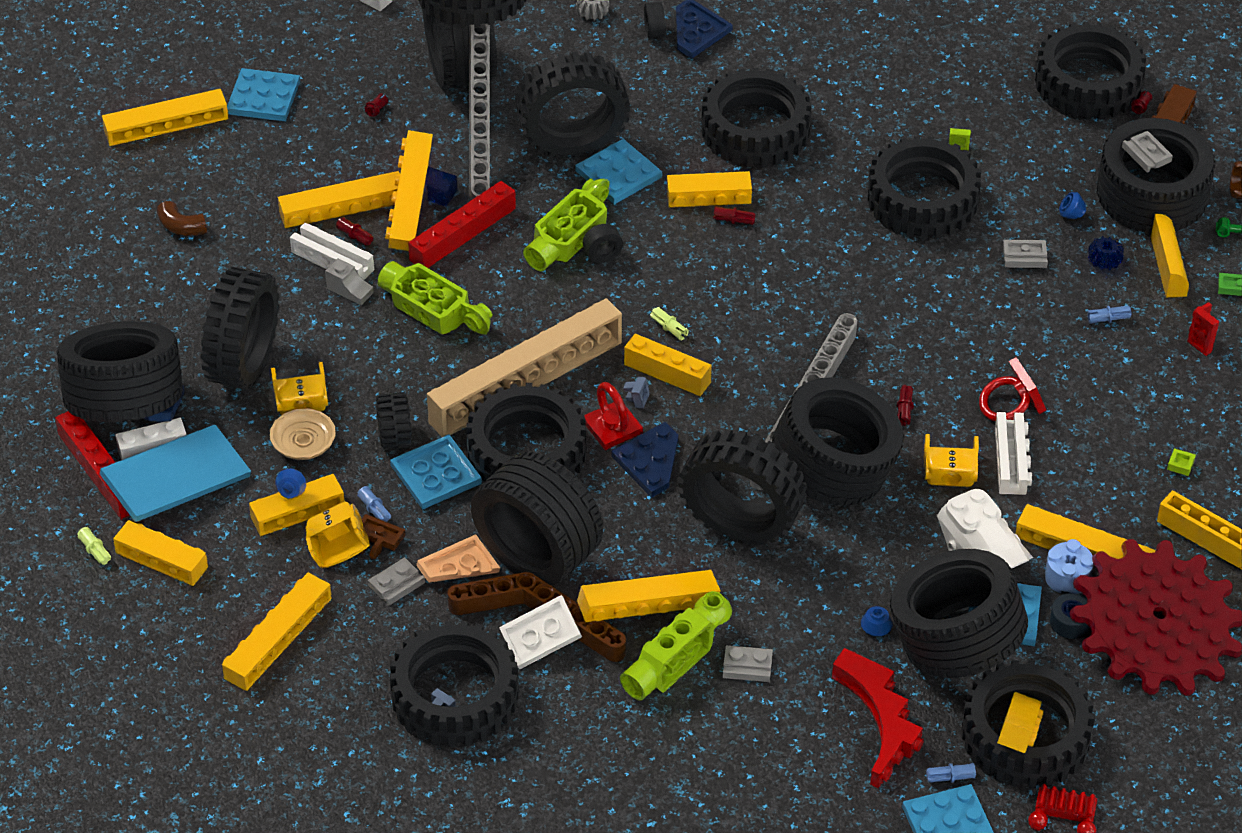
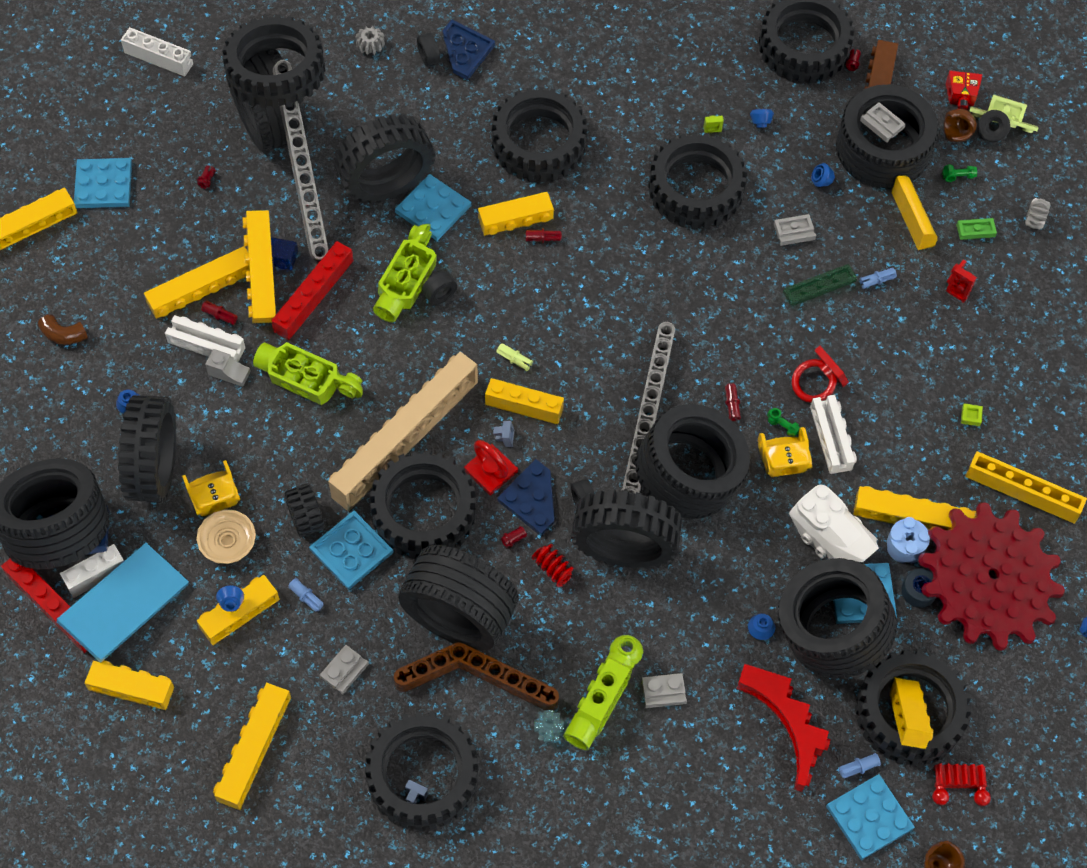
camera: 15 degrees left, 15 degrees up
(94, 545) = (67, 689): yellowish green axle -> none
(336, 535) = (281, 638): yellow piece -> none
(381, 534) = (317, 623): reddish brown hinge -> none
(458, 561) = (393, 639): light nougat wing -> none
(540, 632) = (483, 701): white plate -> none
(606, 670) = (549, 726): none -> clear light blue brick
(619, 490) = (513, 537): none -> dark red pin
(644, 595) = (566, 646): yellow brick -> none
(656, 521) = (553, 565): none -> red piece
(950, 429) = (774, 418): none -> green bar
(1017, 140) = (761, 117): none -> blue cone
(1039, 310) = (819, 285): none -> clear green plate
(1105, 253) = (861, 217): clear blue gear -> none

